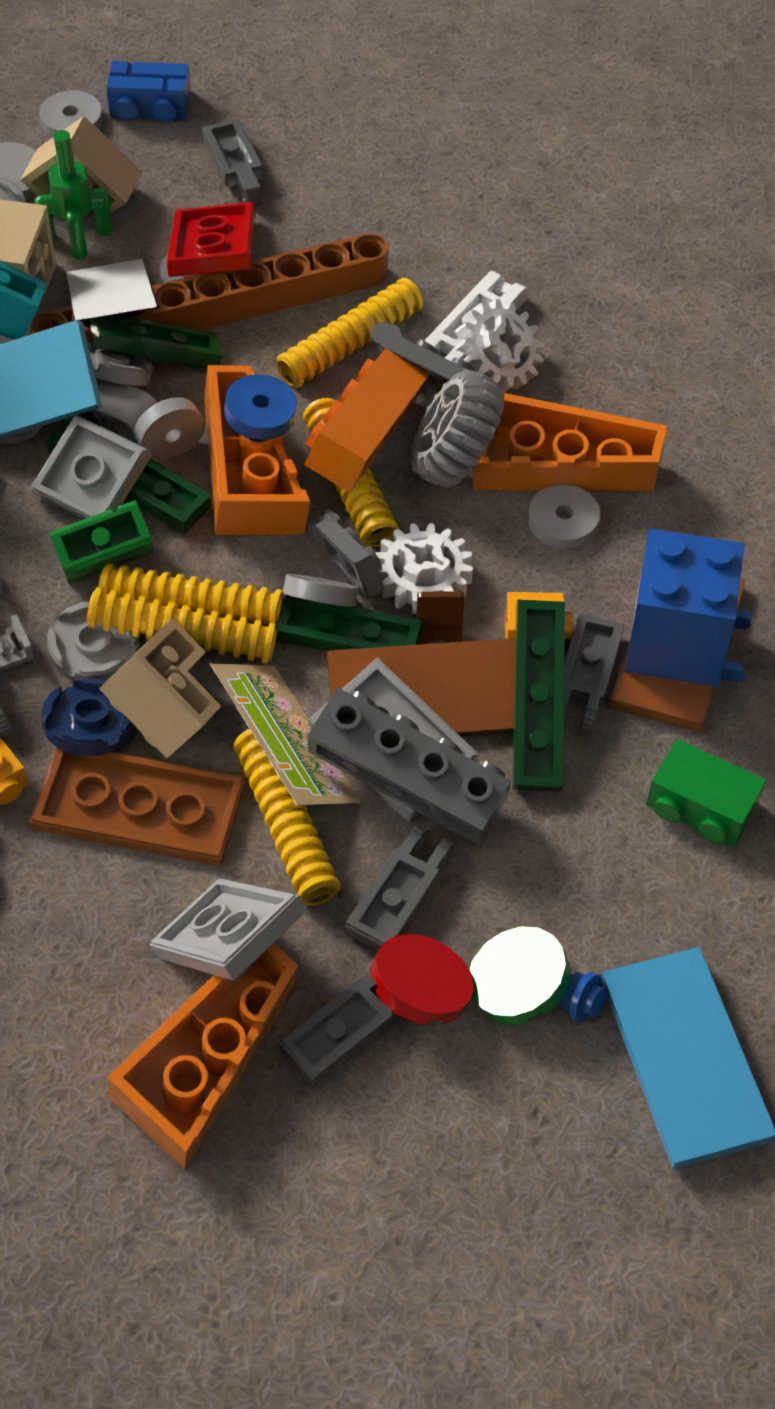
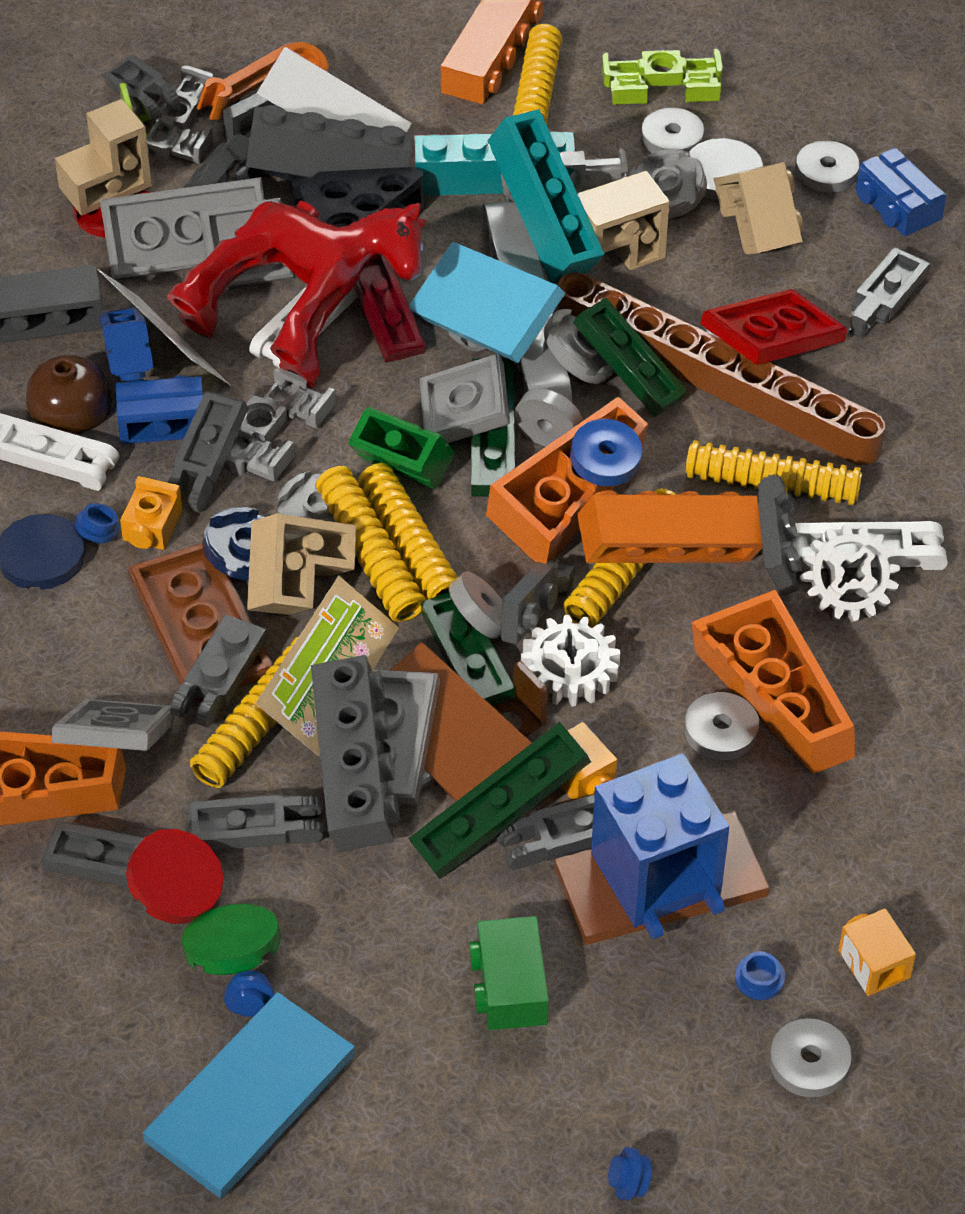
camera: 55 degrees right, 5 degrees down
(72, 197) = (712, 214): green plant -> none
(110, 289) = (650, 297): white sticker -> none
(218, 814) = (219, 669): none -> dark grey hinge
(456, 428) = (713, 588): light grey gear -> none

